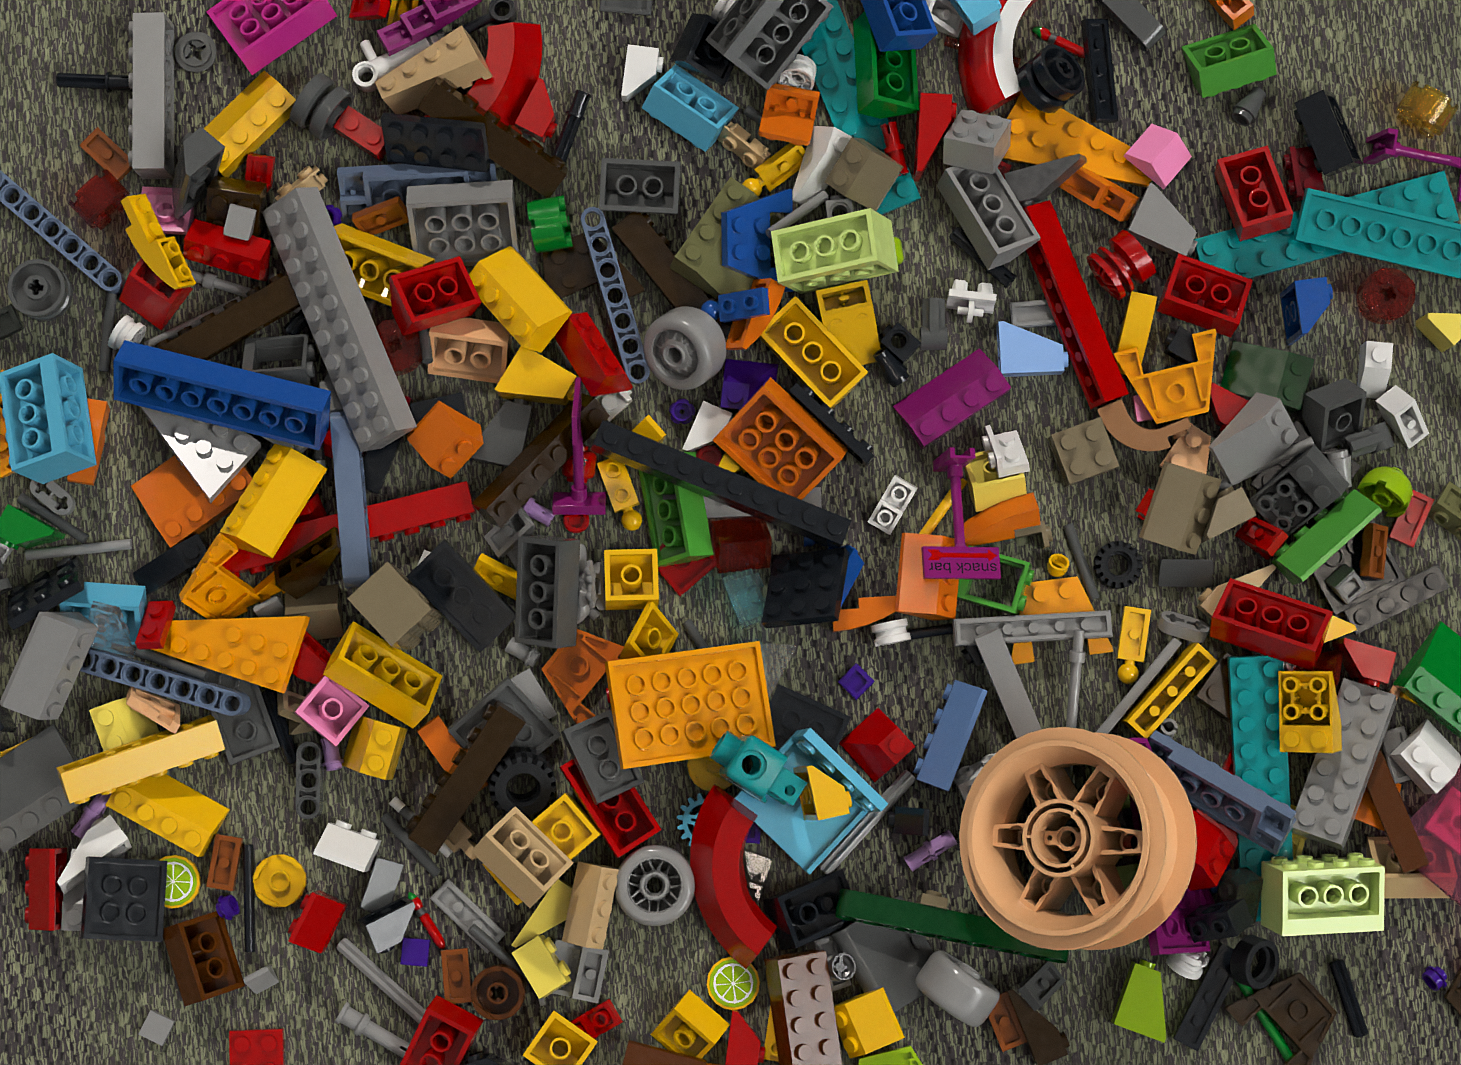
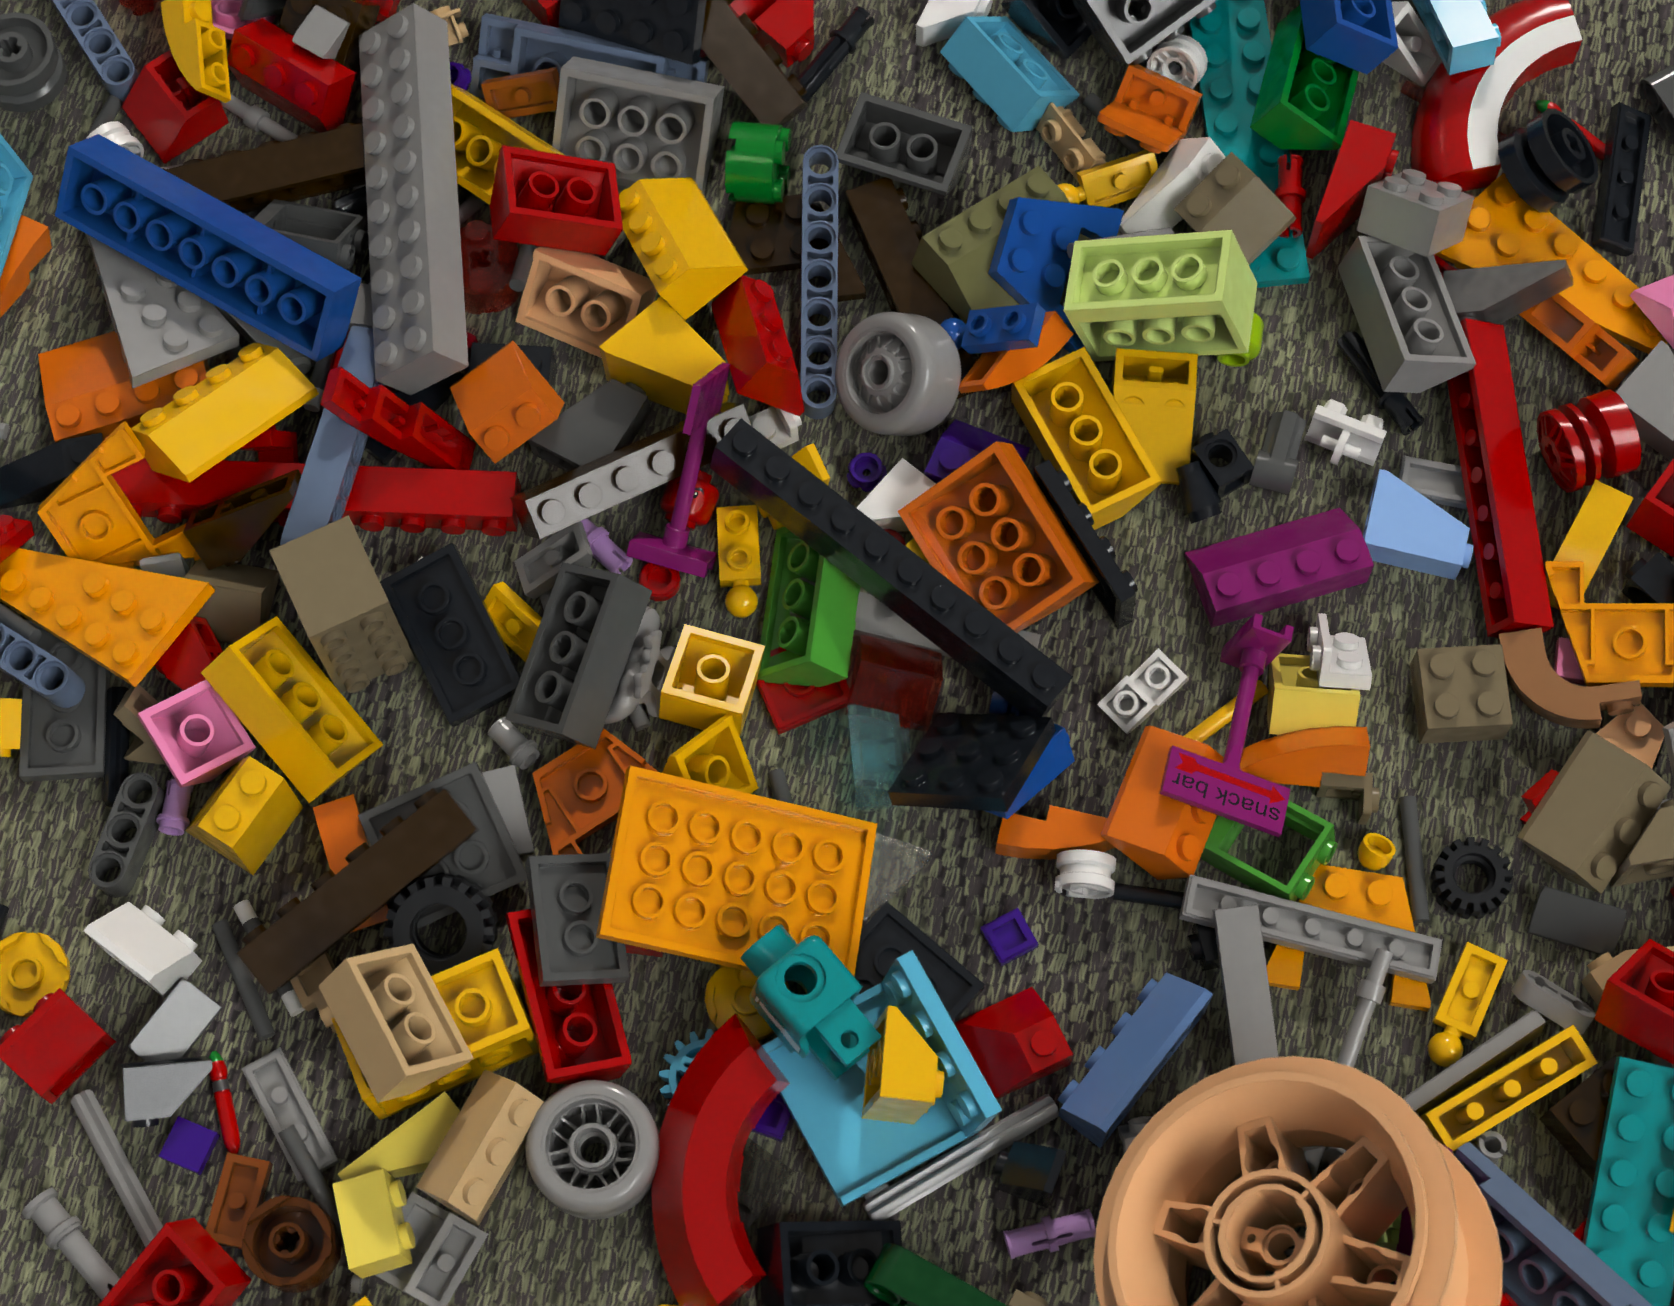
camera: 20 degrees right, 15 degrees down
(383, 474) = (391, 421): none -> red slope

